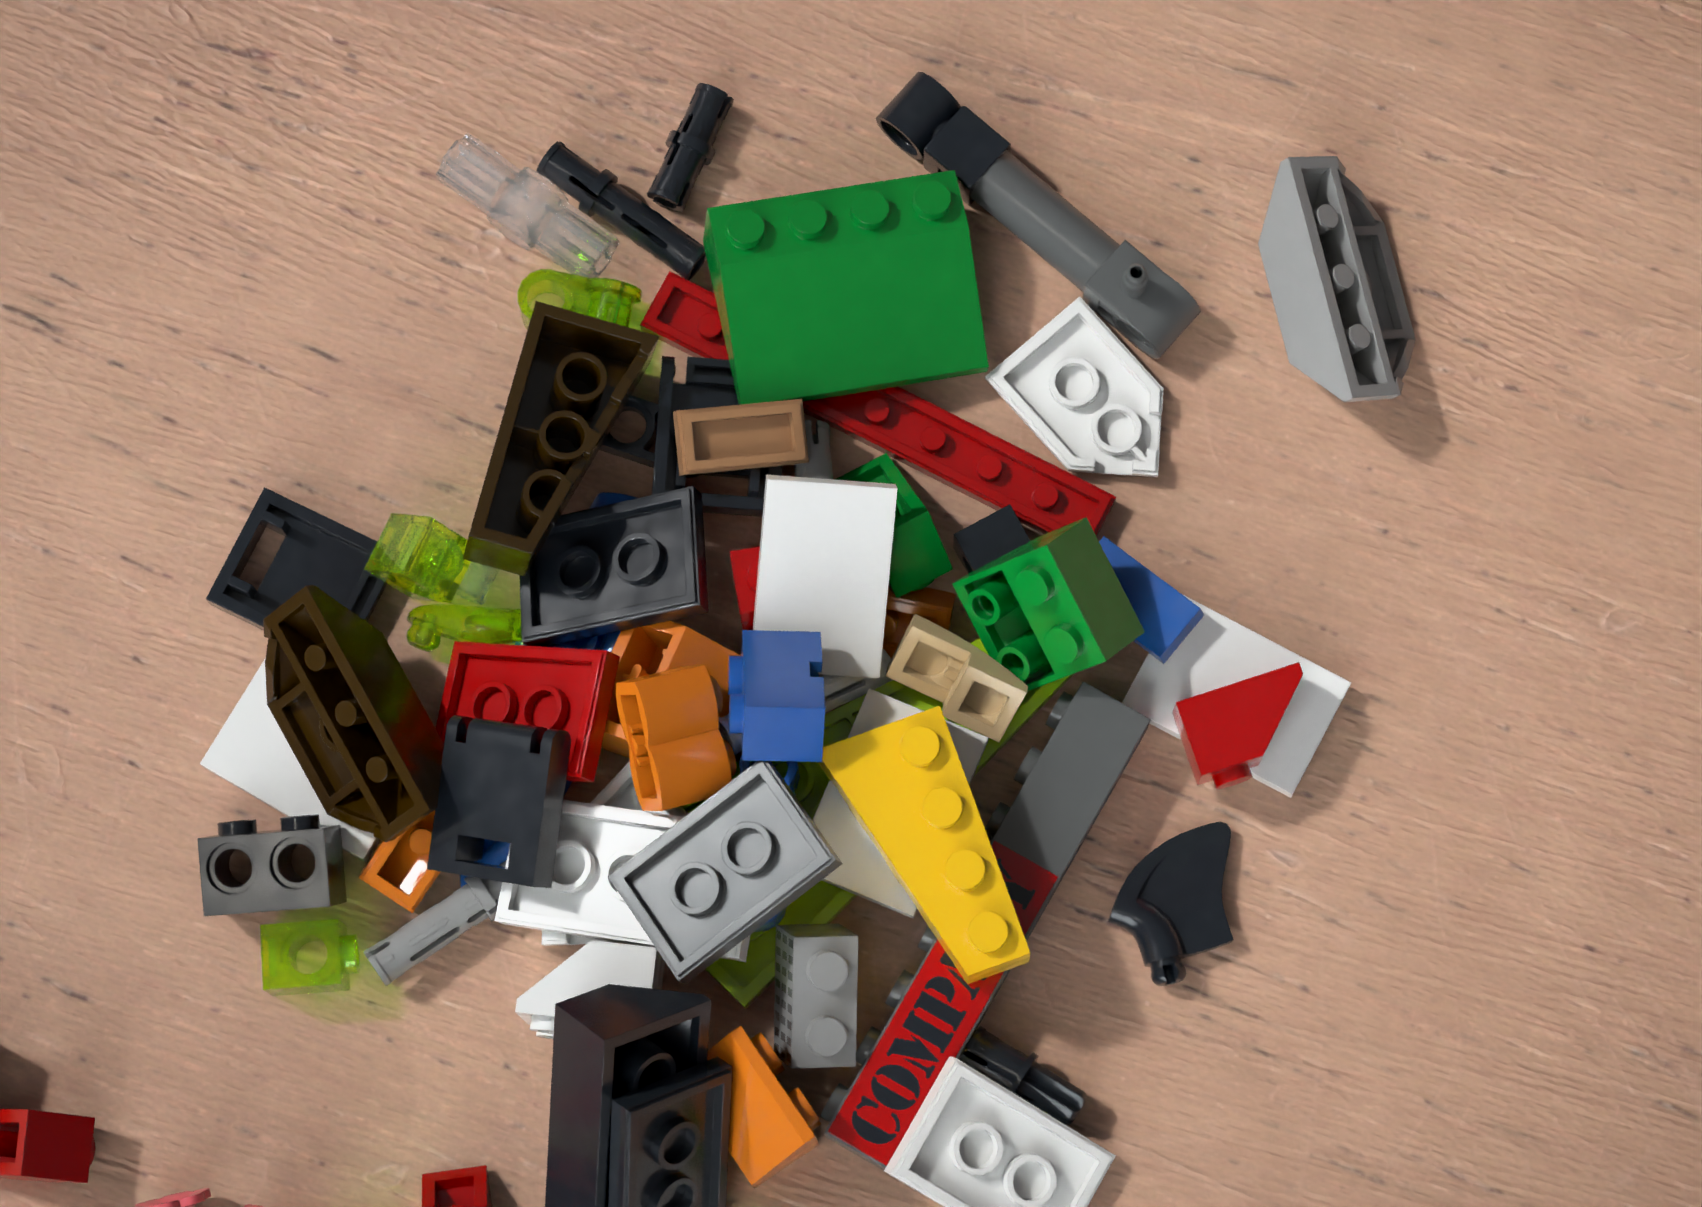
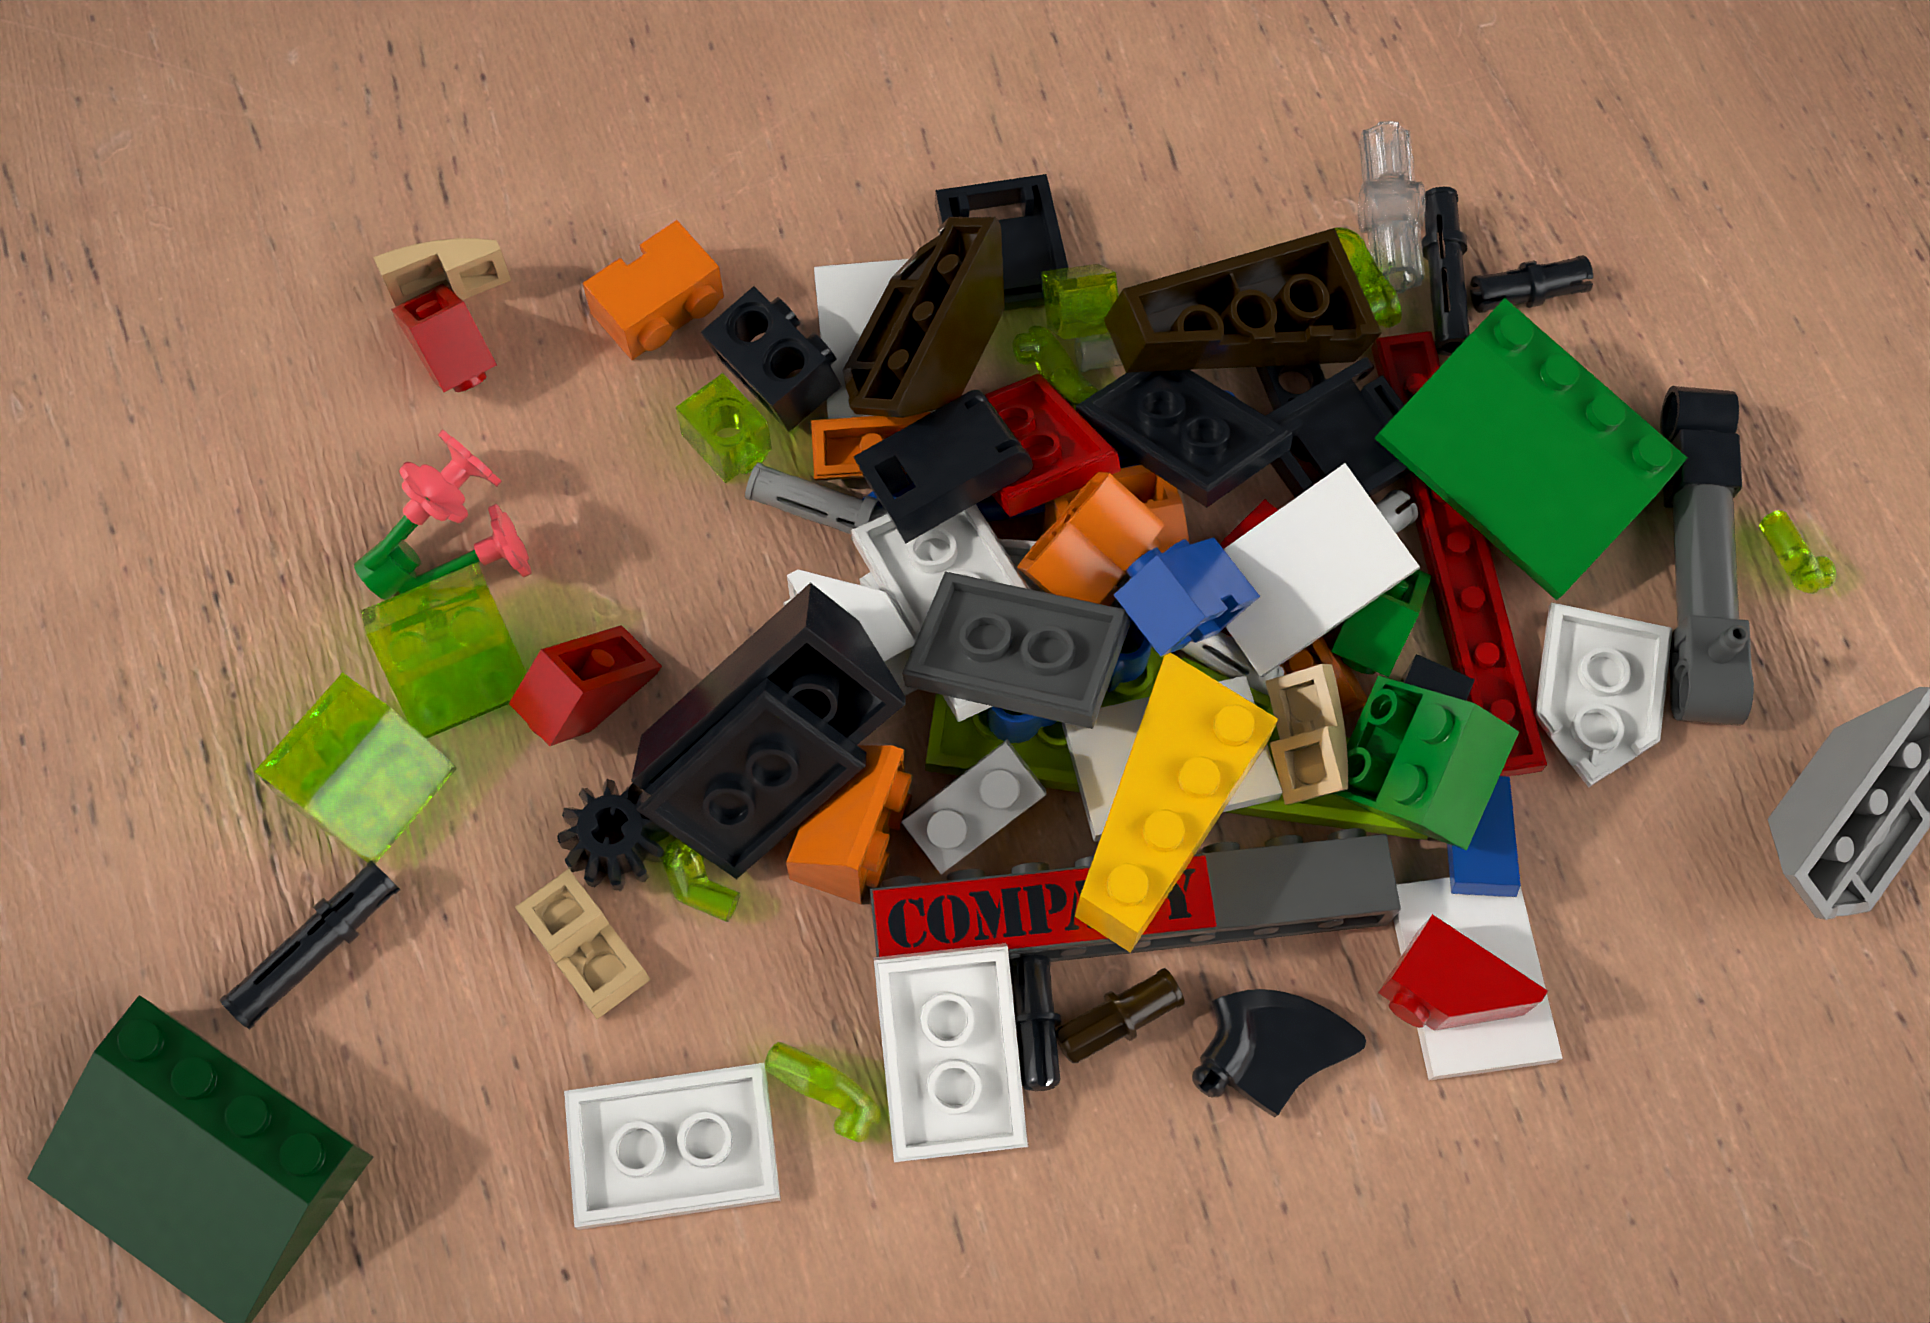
camera: 45 degrees right, 10 degrees down
(124, 924) = (656, 292): none -> orange brick
(740, 437) = (1349, 434): medium nougat tile -> none
(1066, 1005) = (1119, 1016): none -> dark brown axle
(1091, 142) = (1801, 566): none -> clear neon green arm

